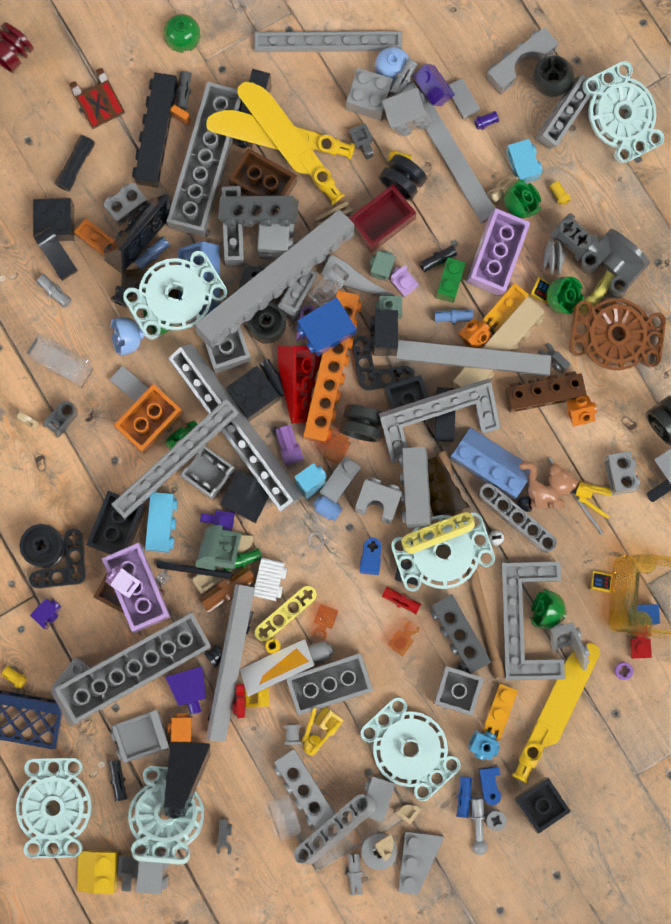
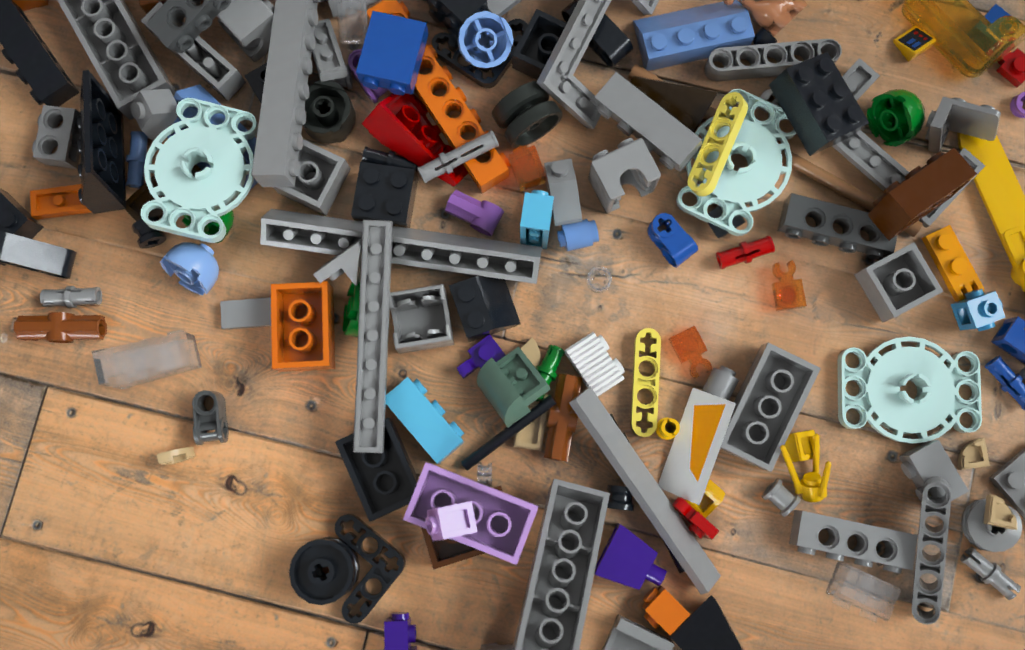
camera: 40 degrees left, 0 degrees up
(34, 301) = (60, 327): none -> dark orange piece
(183, 241) = (154, 111): none -> light grey slope
(199, 408) = (346, 261): none -> light grey slope
(305, 410) = (428, 172): none -> light grey pin
(378, 366) = (485, 40): none -> light blue cylinder
(509, 563) = (818, 103): none -> black brick
(509, 656) = (920, 192): none -> reddish brown brick

